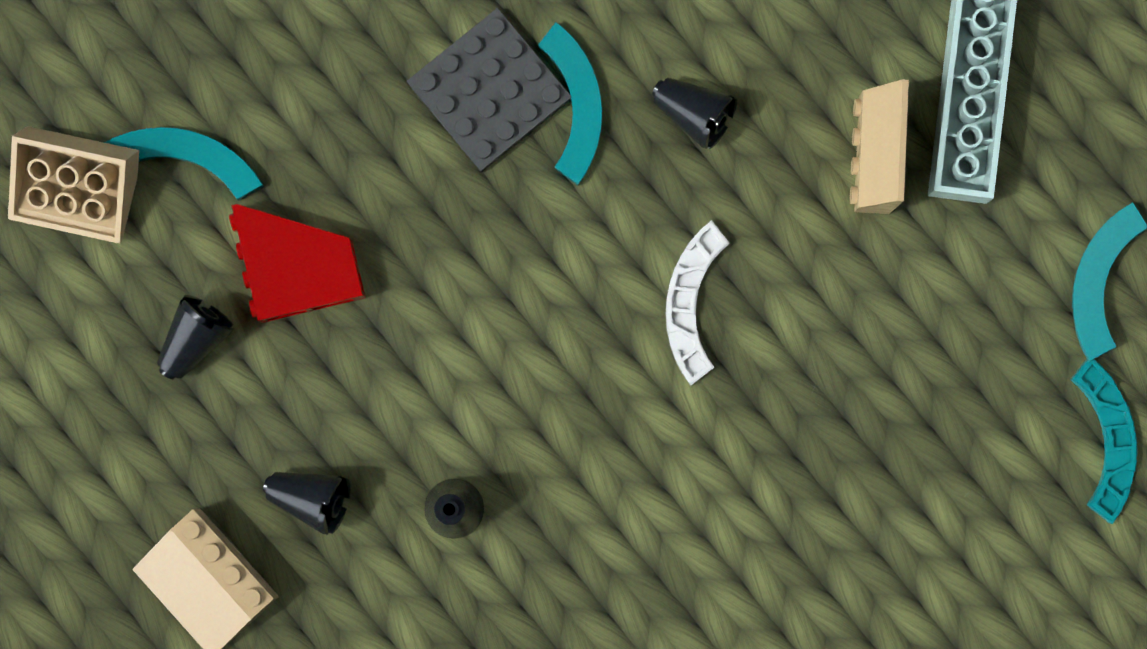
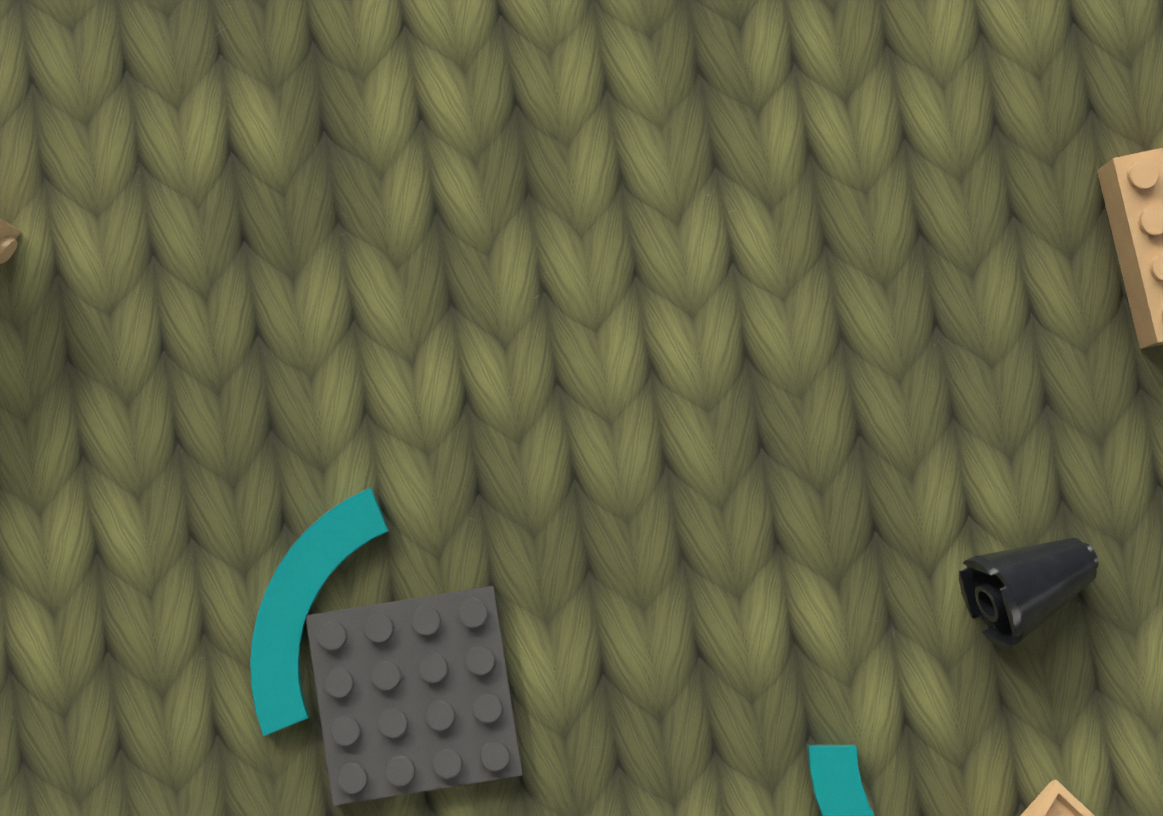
camera: 155 degrees left, 0 degrees up
(293, 265) = (829, 605): red slope -> none
(310, 498) = (987, 269): black cone -> none
(467, 503) = (797, 147): black cone -> none
(682, 302) = (322, 248): white tile -> none
(695, 109) = (145, 494): black cone -> none

